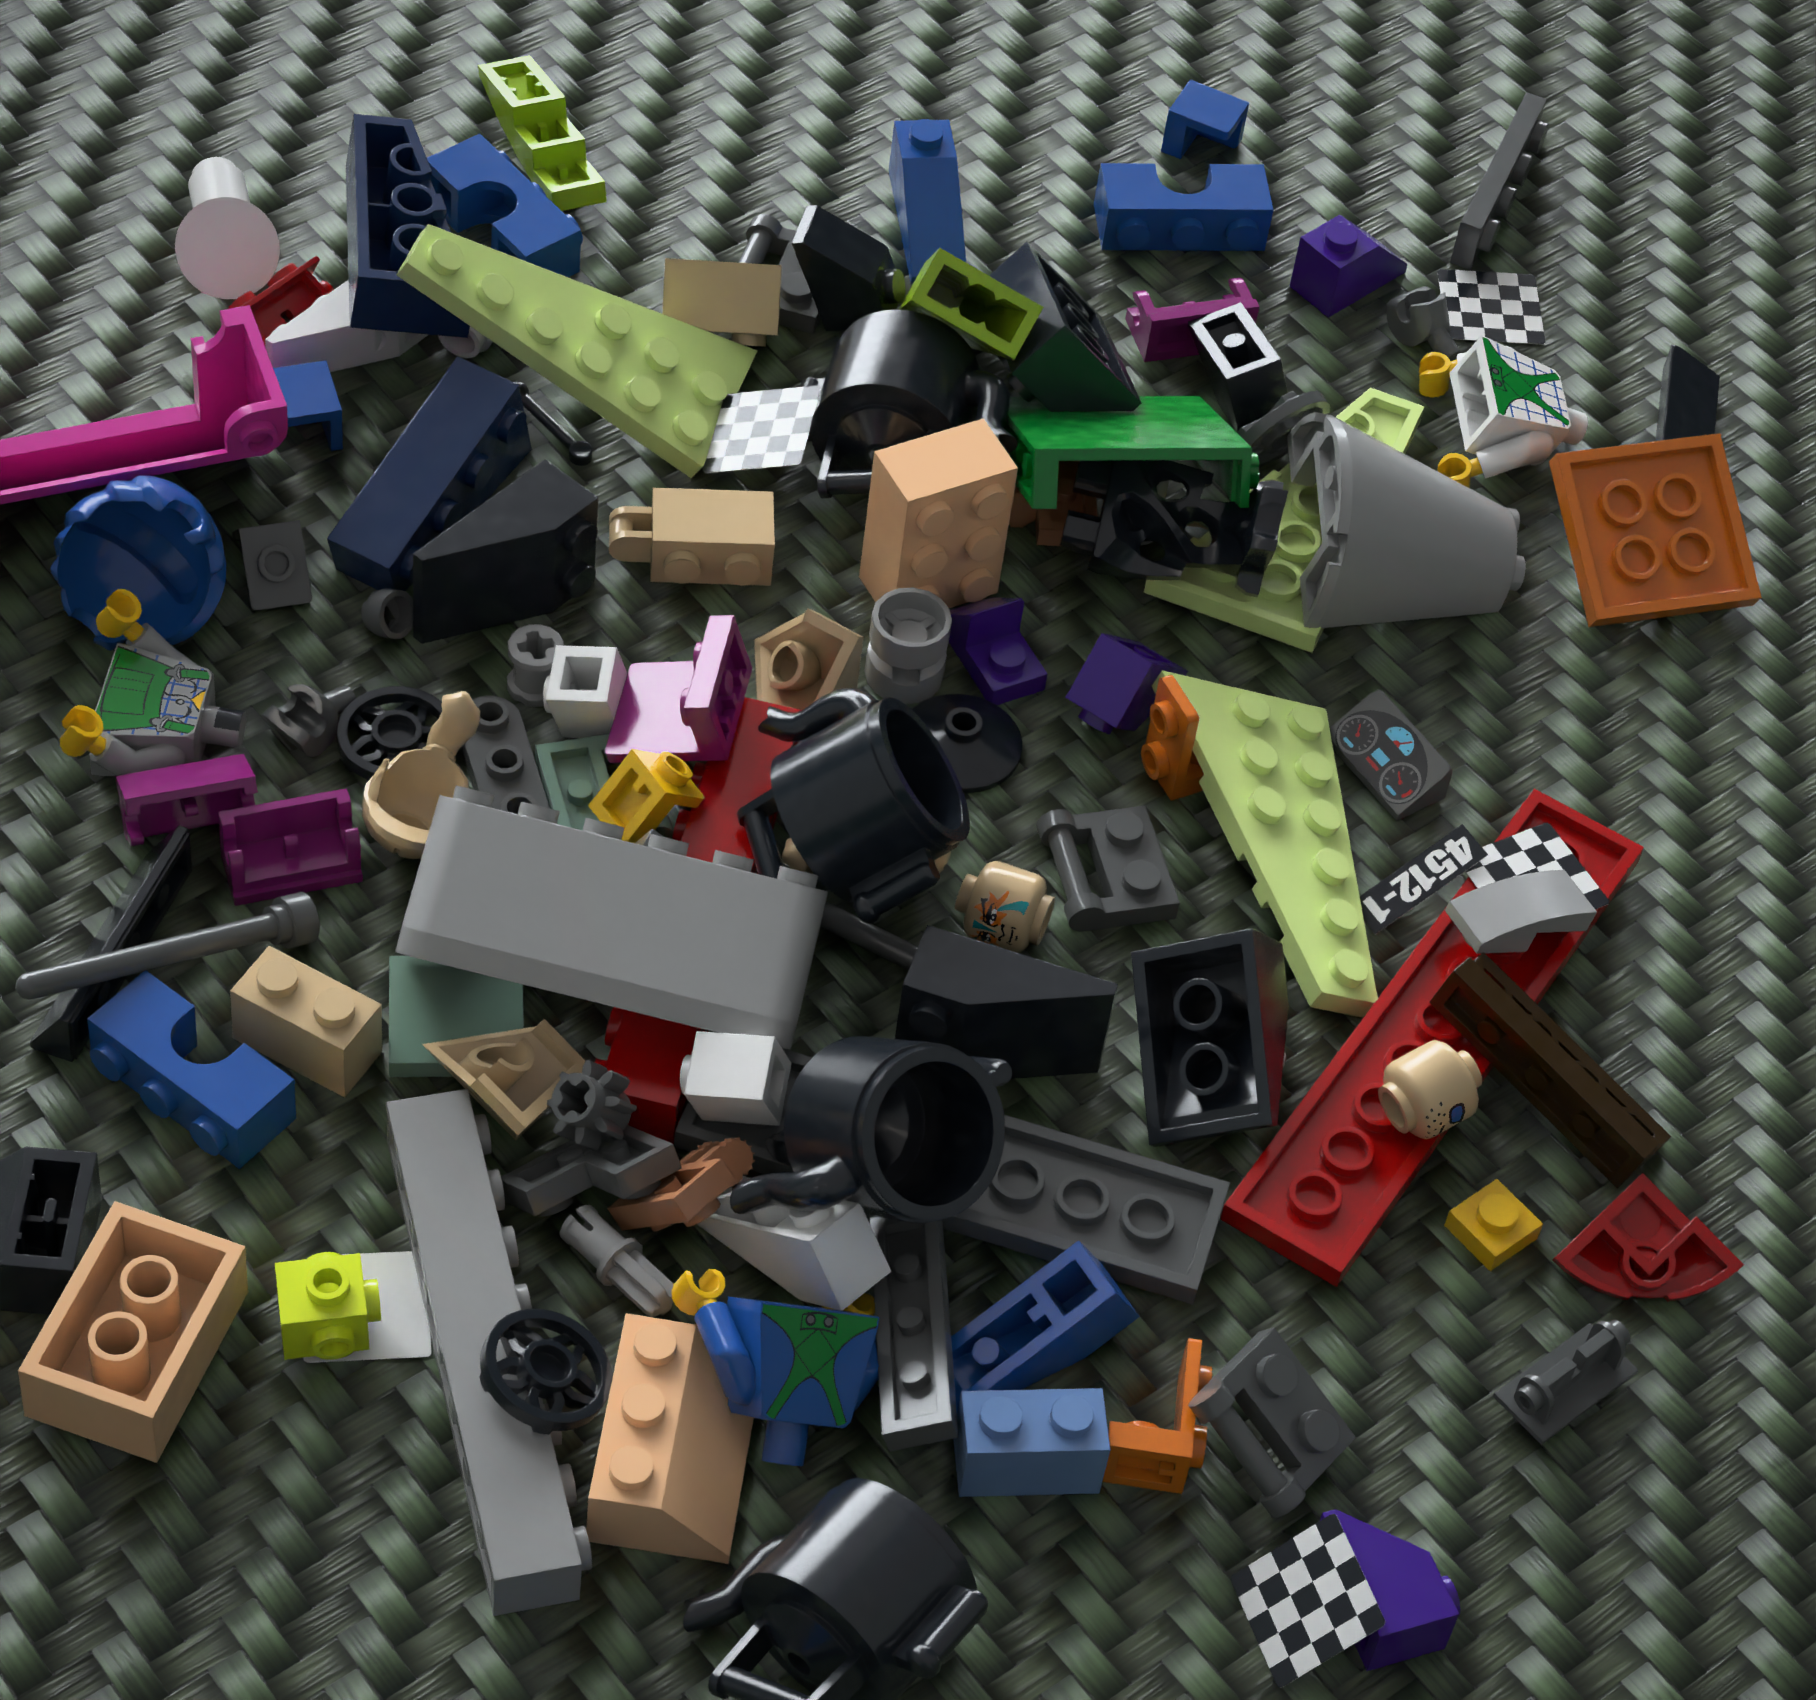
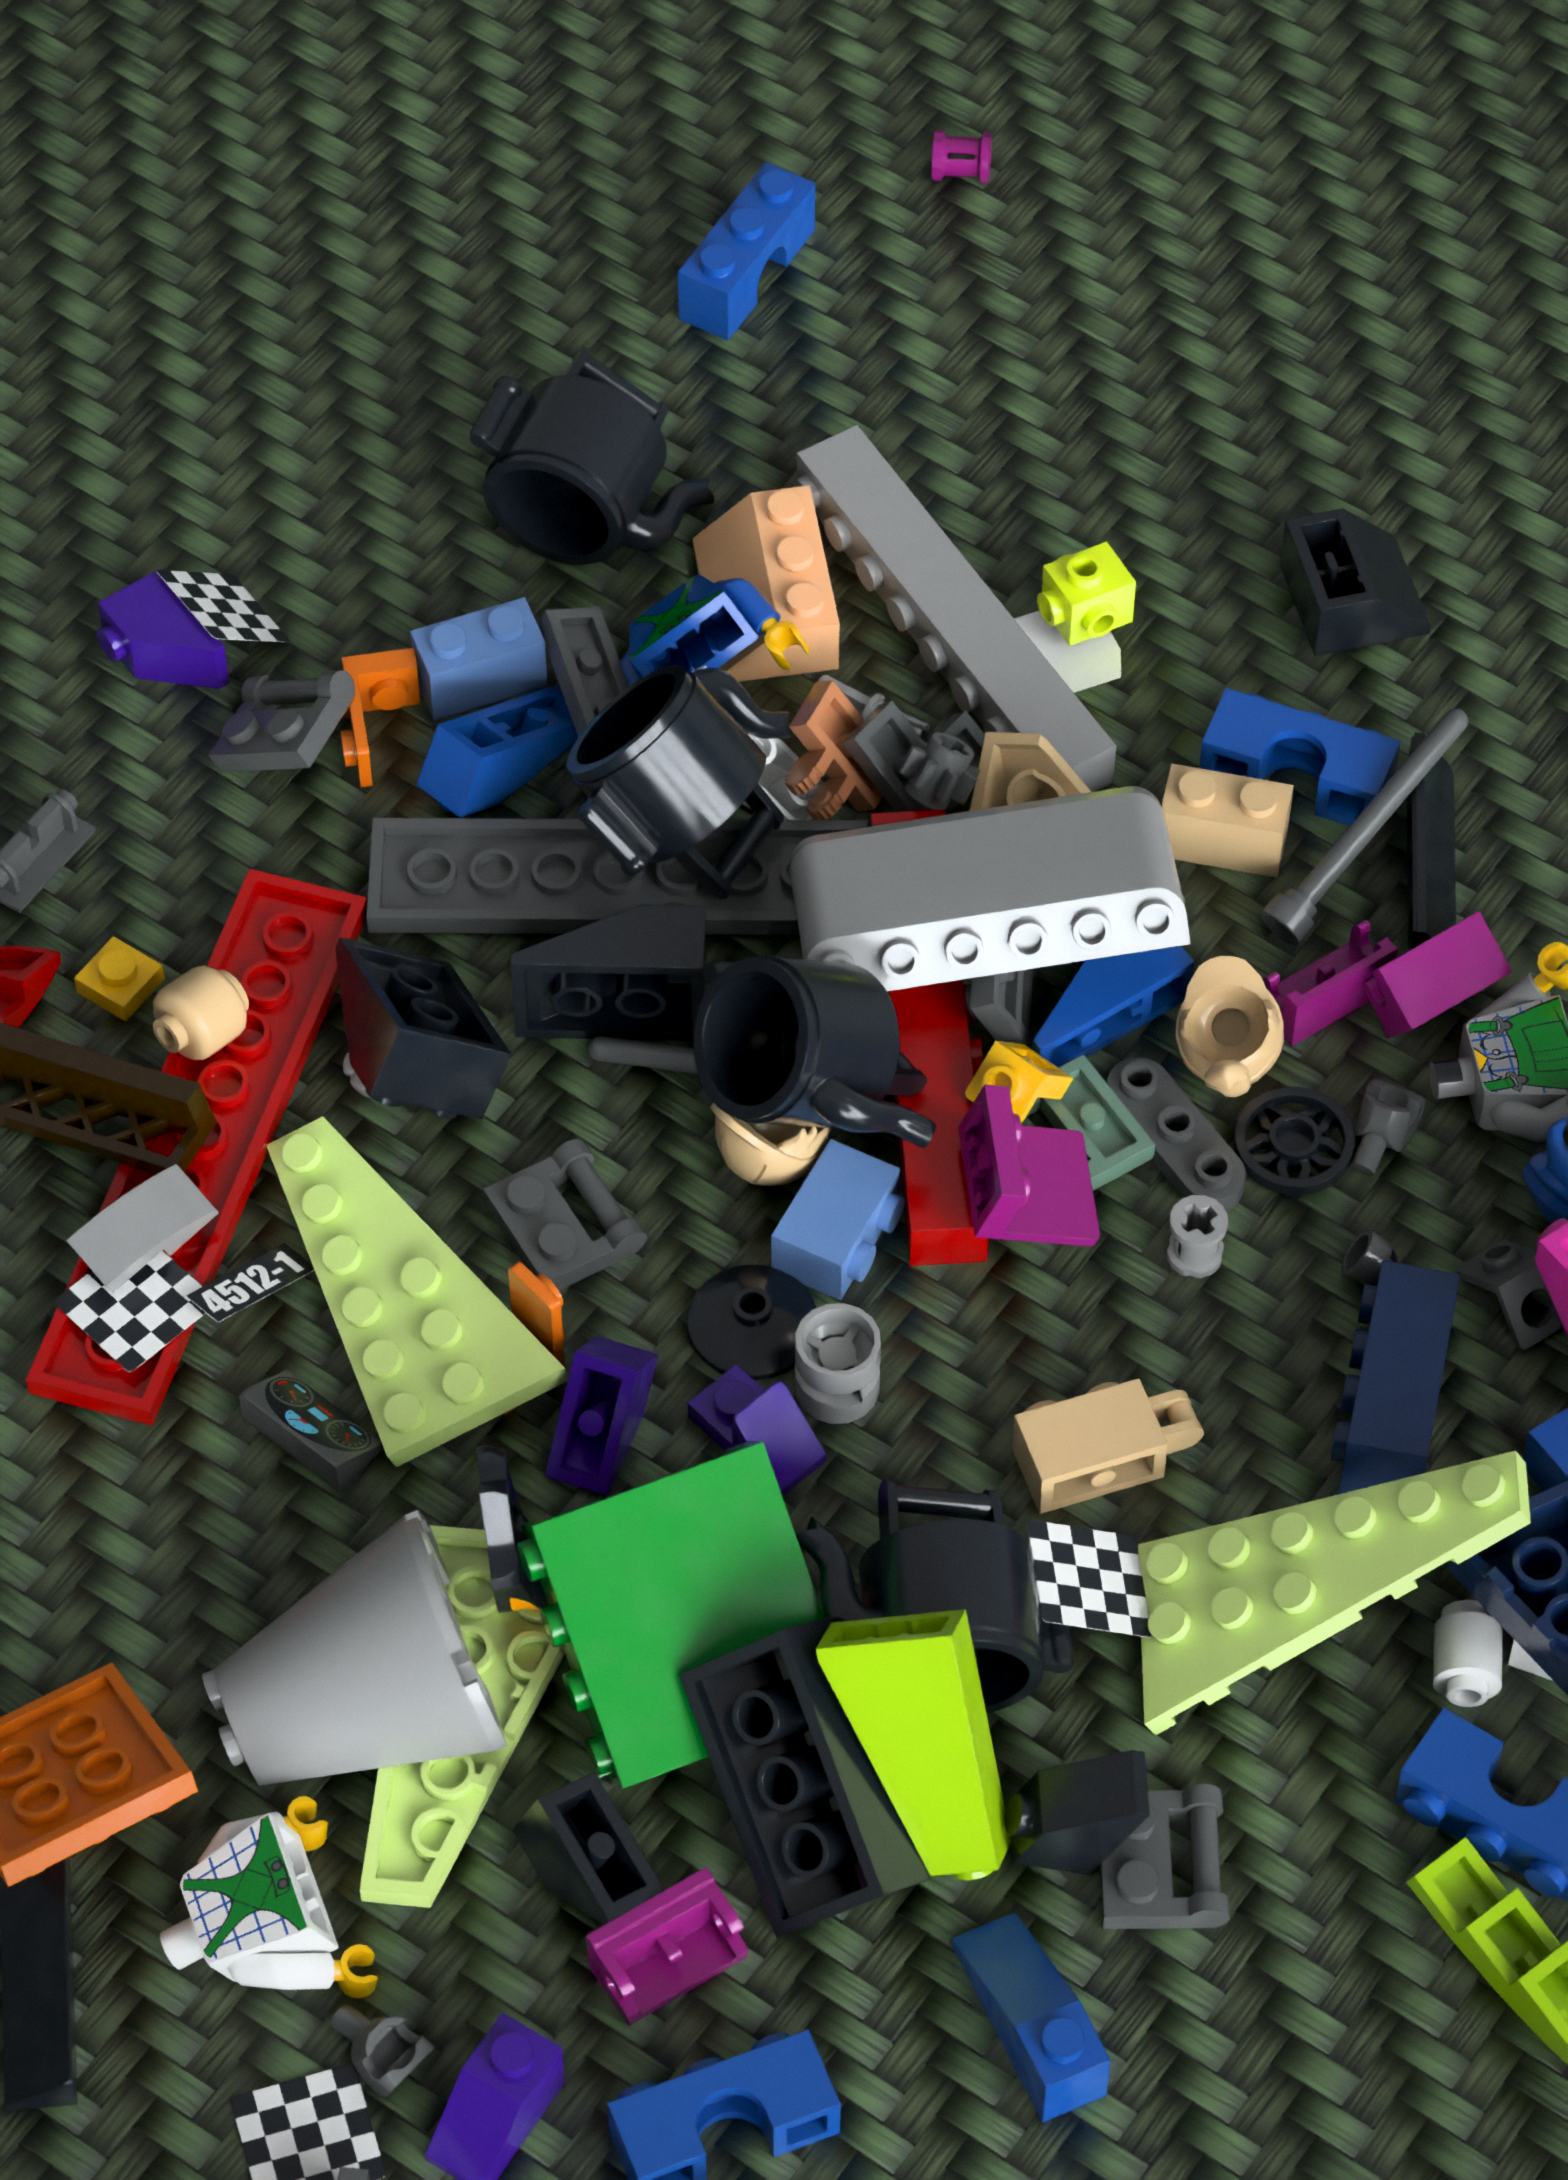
camera: 170 degrees right, 5 degrees up
(134, 1331) = (1221, 530): light nougat brick -> none
(508, 557) = (1264, 1313): black slope -> none
(545, 1370) = (884, 564): black wheel -> none
(584, 689) = (1130, 1197): white brick -> none
(725, 297) = (1209, 1742): tan brick -> none
(736, 1078) = (820, 809): white brick -> none
(806, 660) = (931, 1319): tan slope -> none
(939, 515) = (846, 1437): light nougat brick -> none
(1005, 906) = (648, 1122): tan head -> none
(1270, 433) = (517, 1763): dark grey wheel -> none

